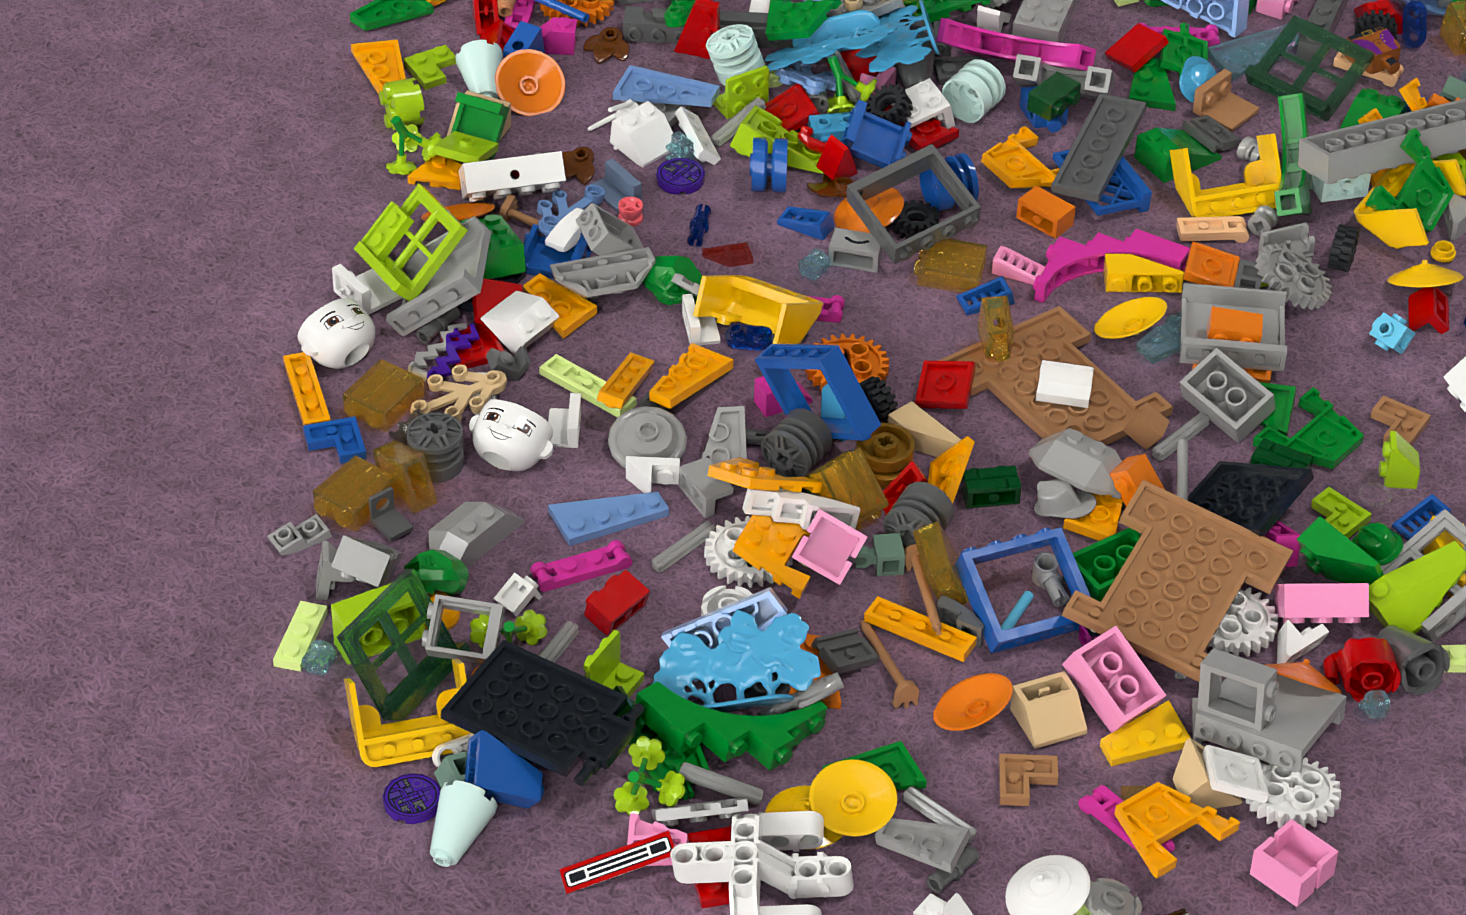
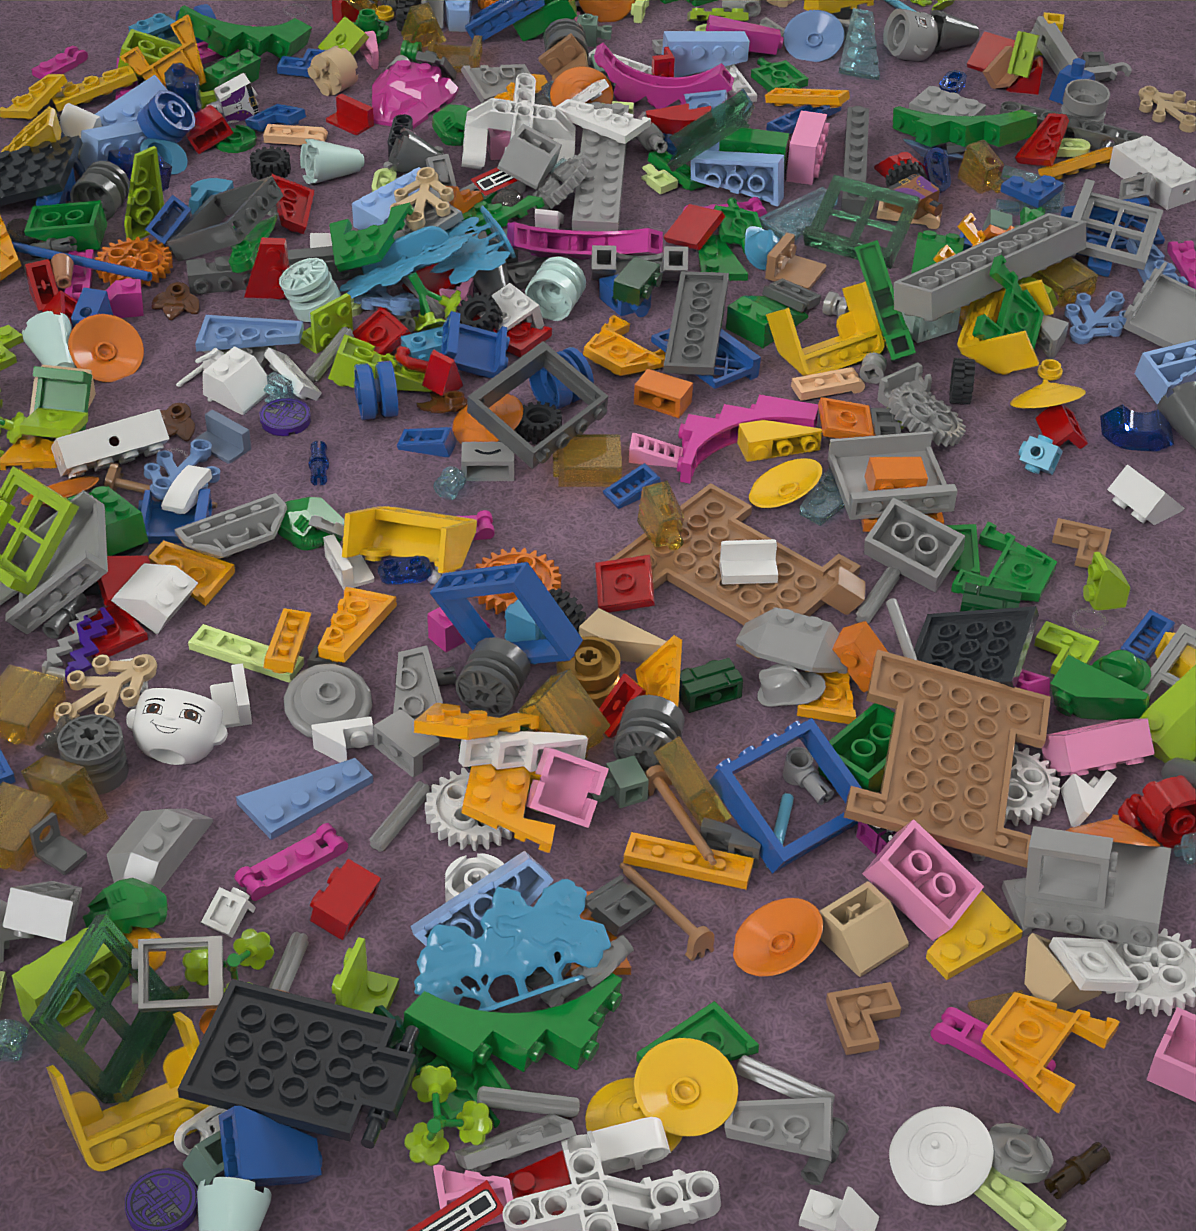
camera: 15 degrees left, 0 degrees up
(511, 365) = (156, 645): dark grey bracket -> none
(606, 232) = (226, 485): light grey window -> none
(631, 210) = (243, 460): coral wheel -> none
(729, 255) = (358, 487): clear red tile -> none

